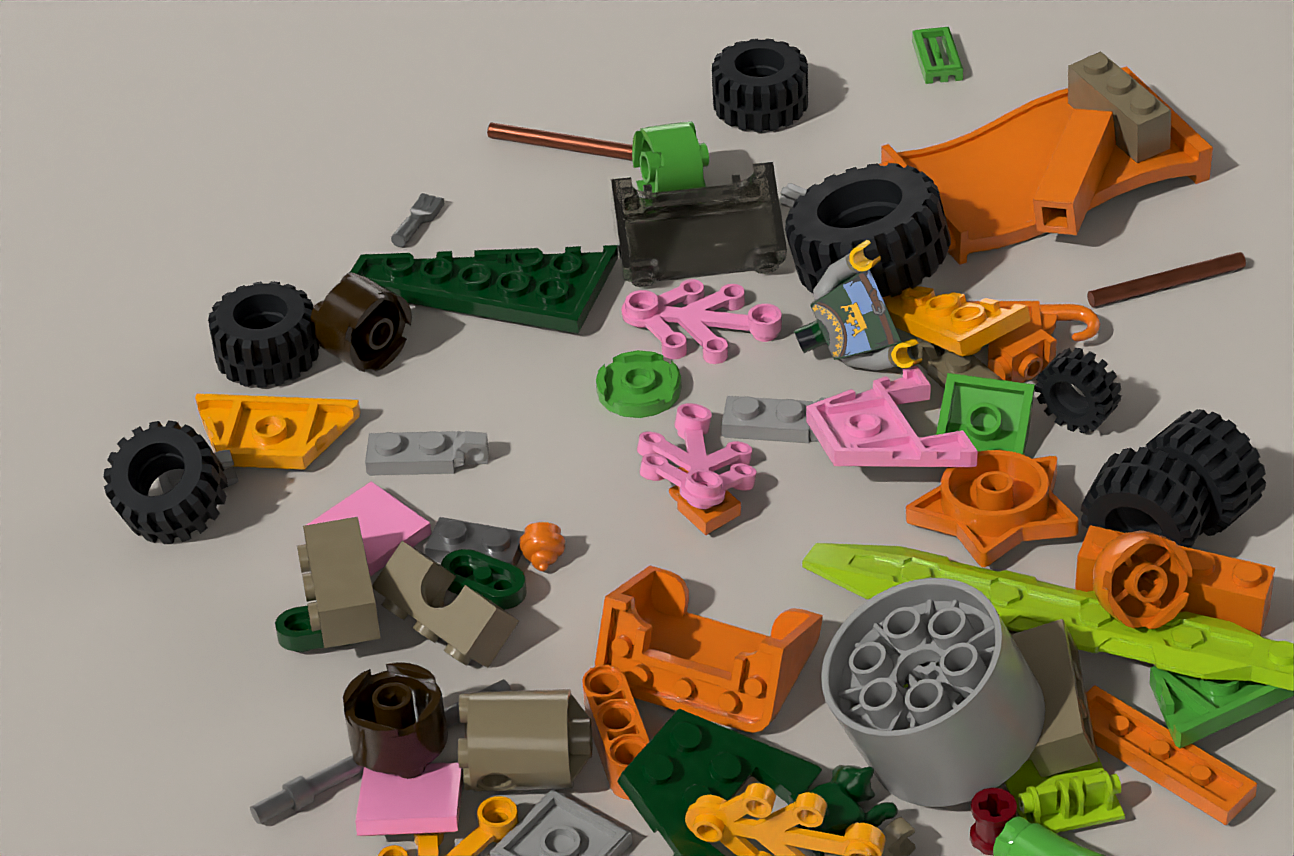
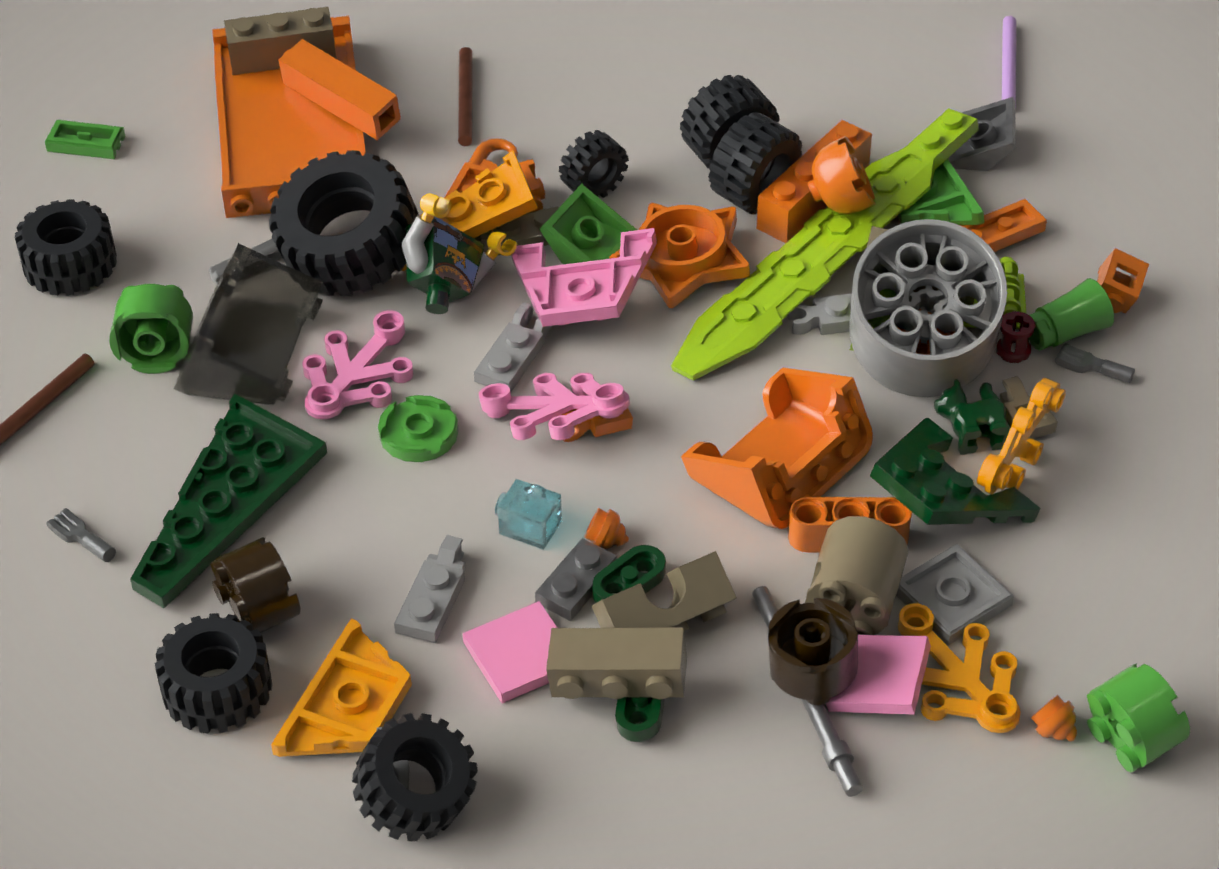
camera: 75 degrees left, 5 degrees up
(540, 484) = (529, 513): none -> clear light blue brick

